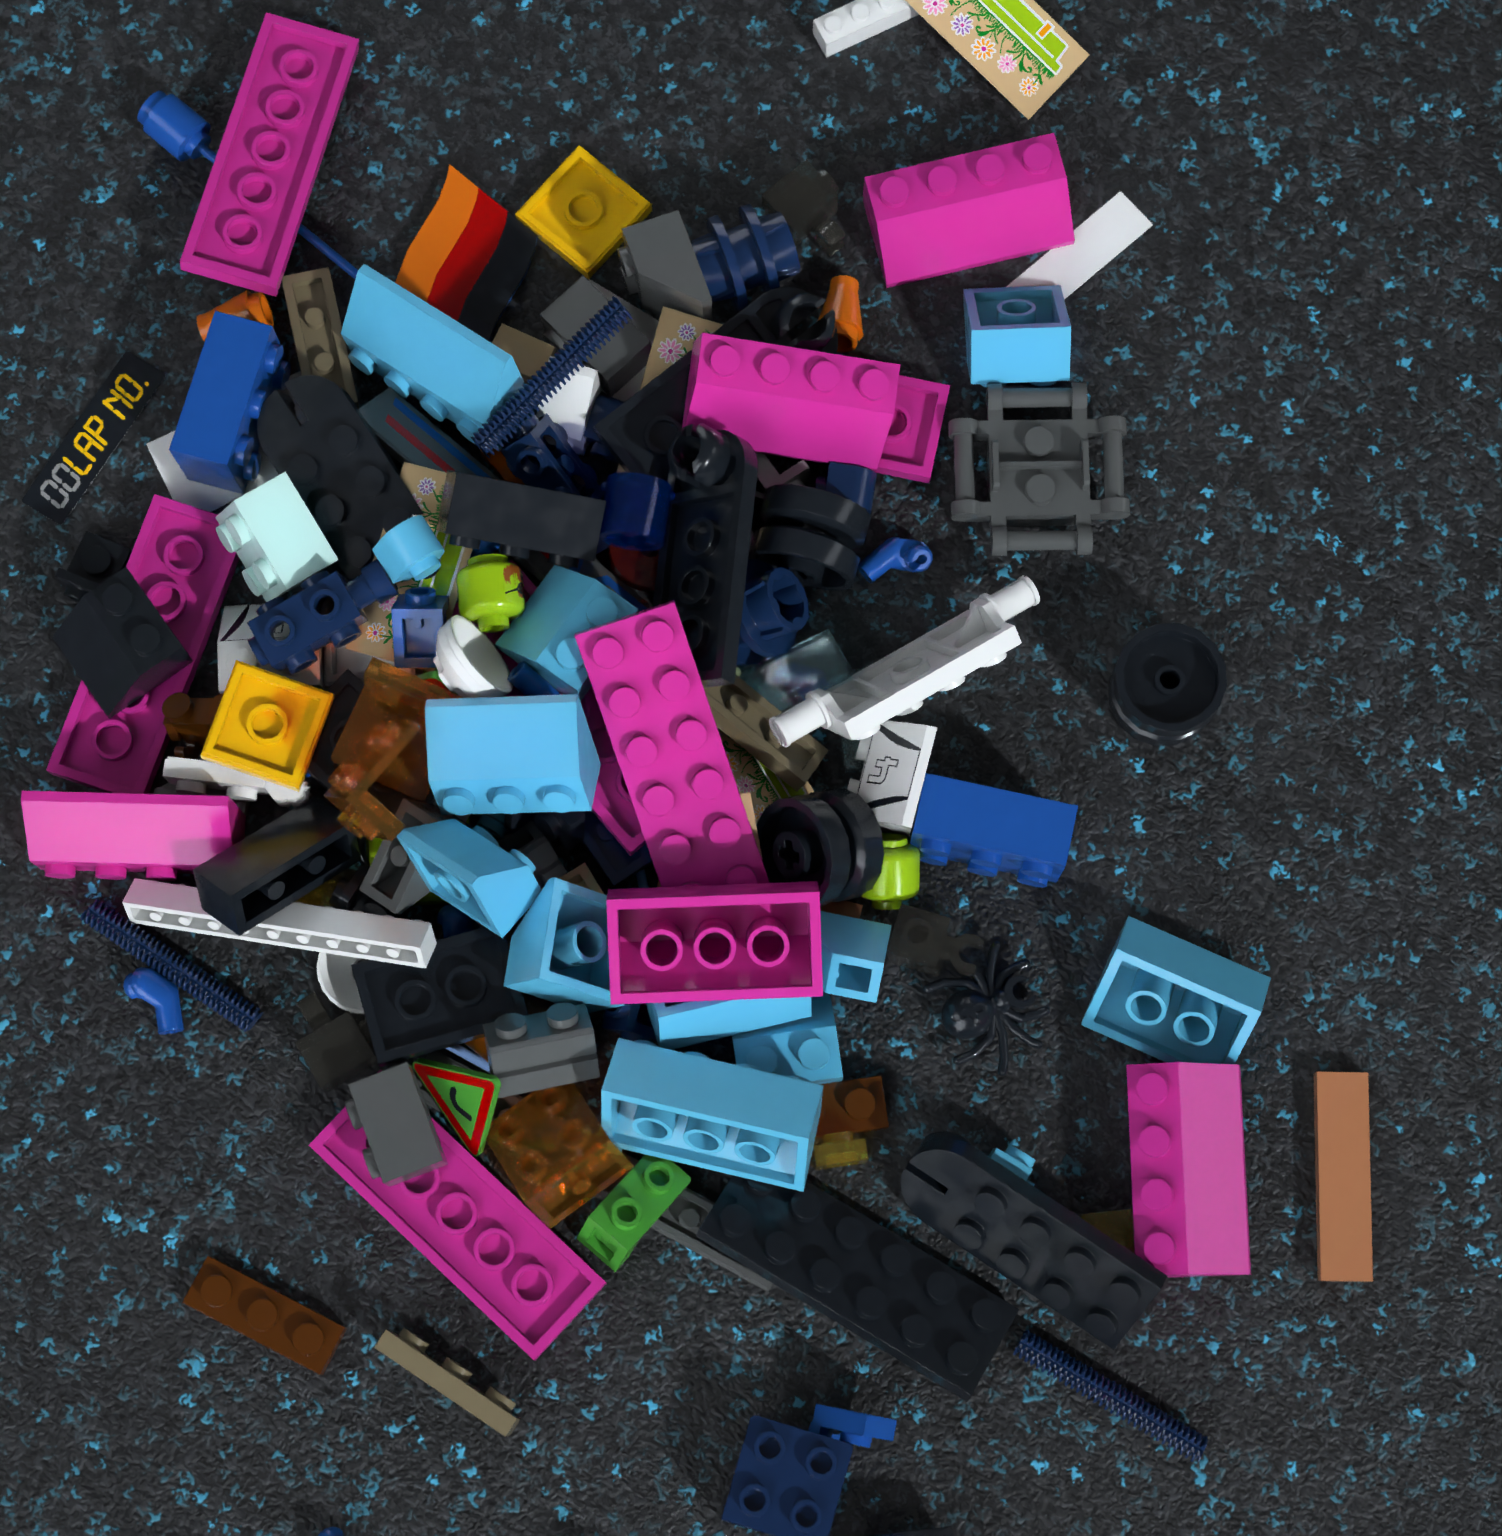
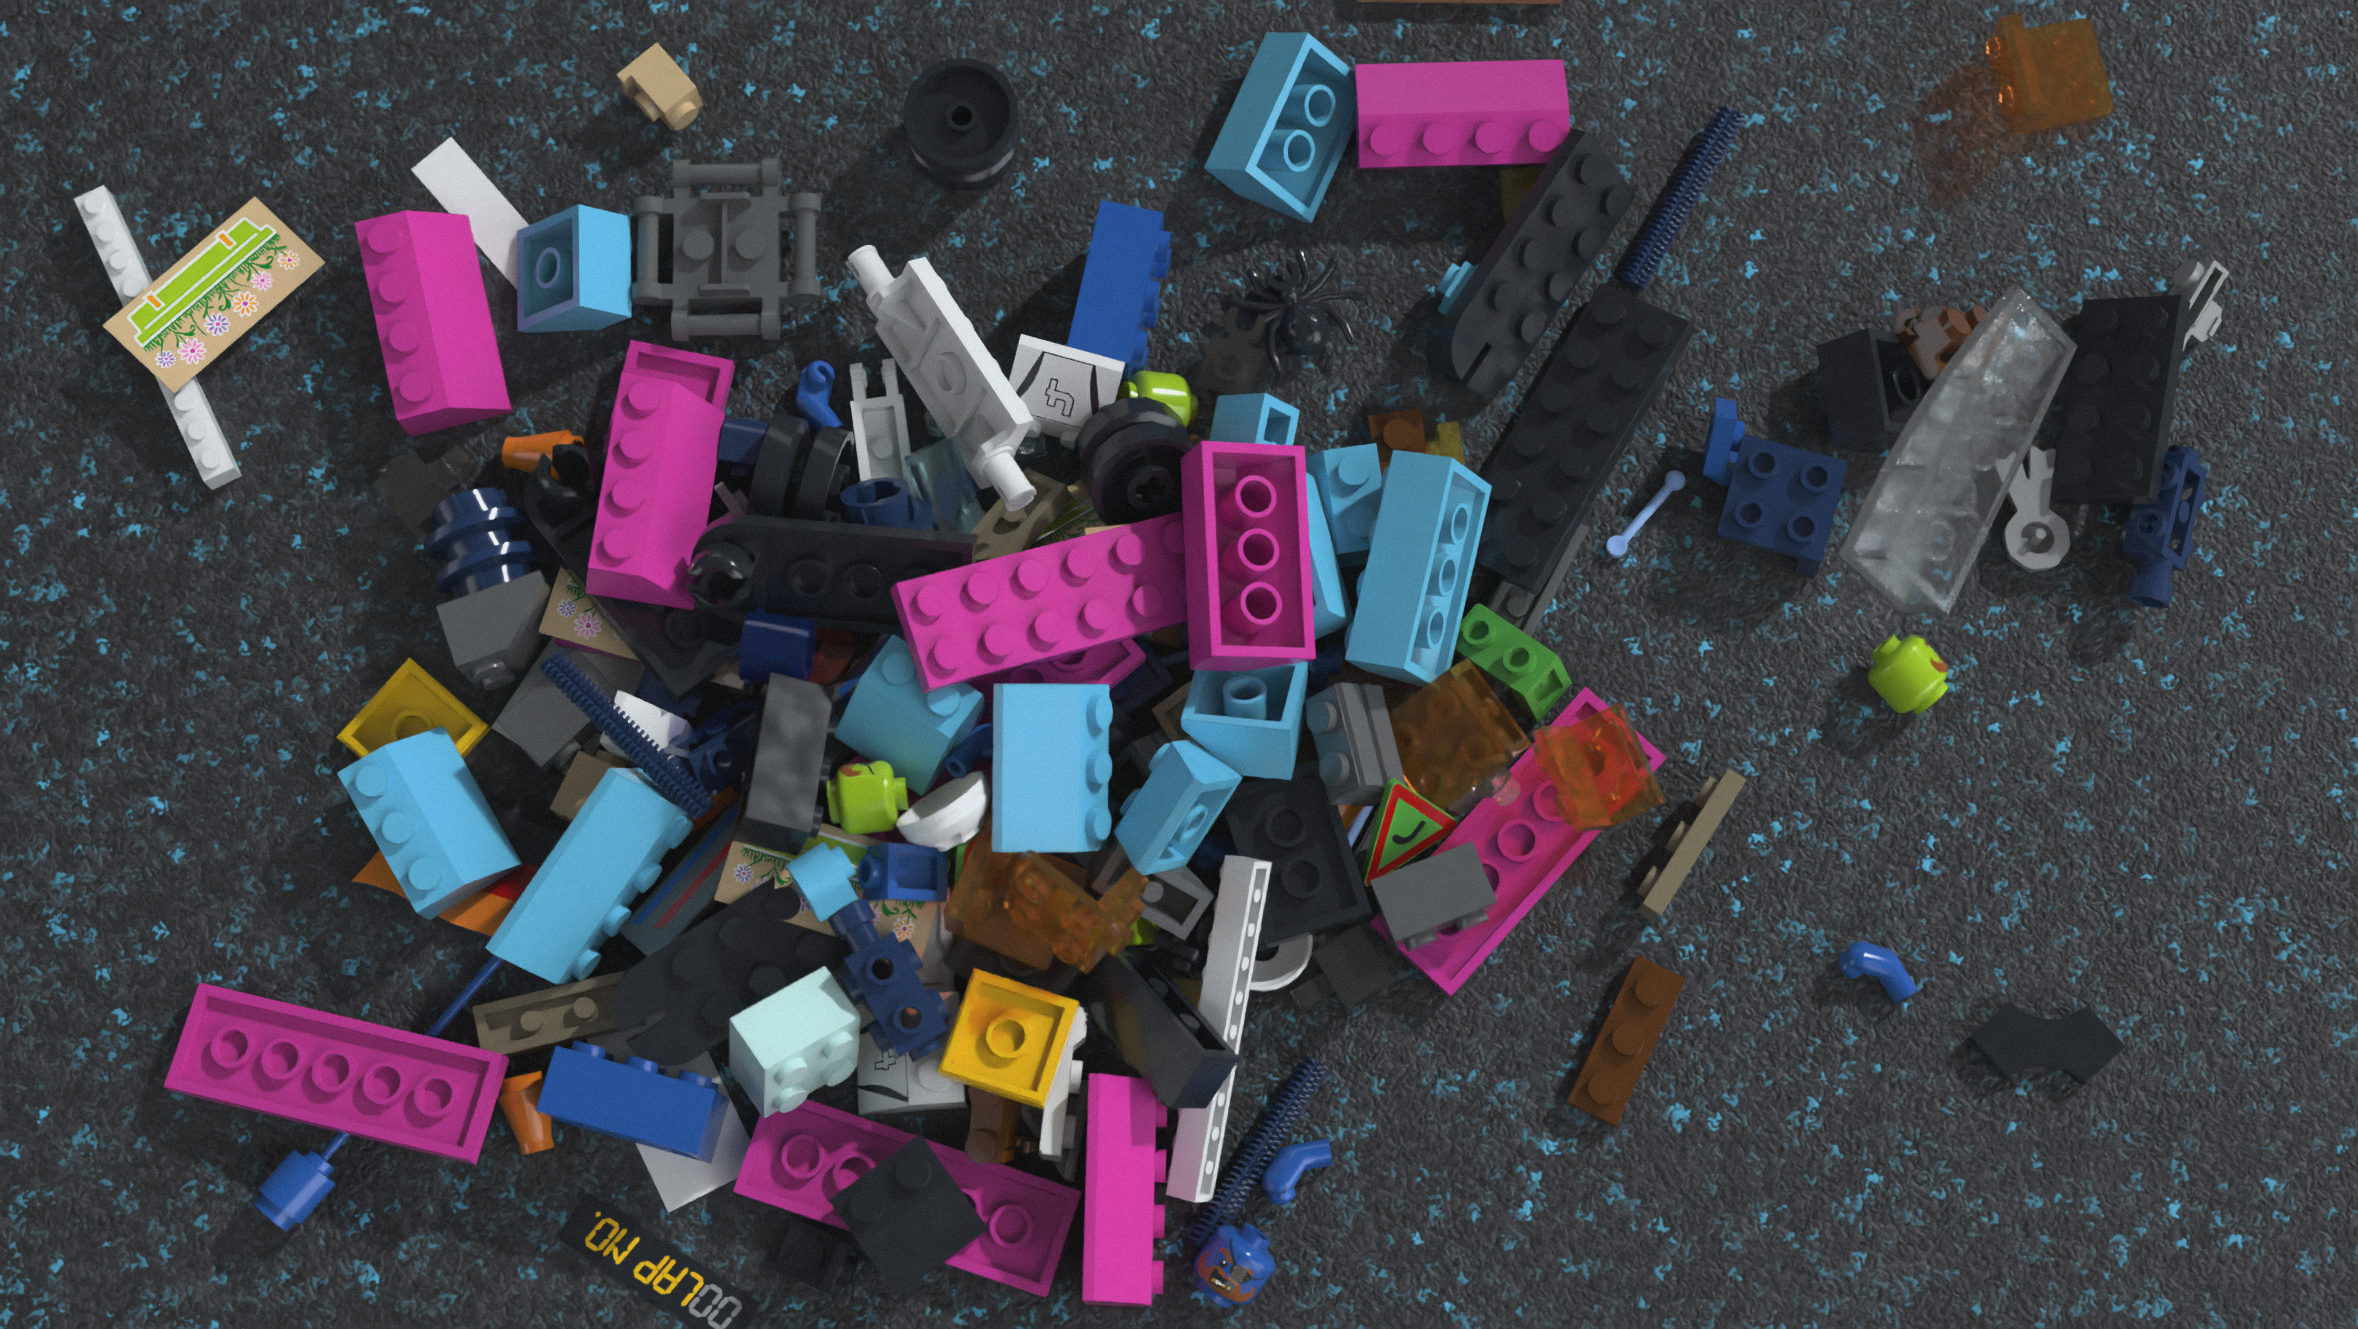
camera: 90 degrees left, 0 degrees up
(65, 939) = (1233, 1265): none -> blue head
(494, 221) = (430, 820): none -> medium azure slope
(503, 1192) = (1497, 785): none -> clear arm
(510, 1283) = (1598, 770): none -> clear orange bracket
(752, 1321) = (1617, 544): none -> light blue hinge
(866, 614) = (880, 427): none -> white hinge
(1199, 408) = (661, 88): none -> tan brick

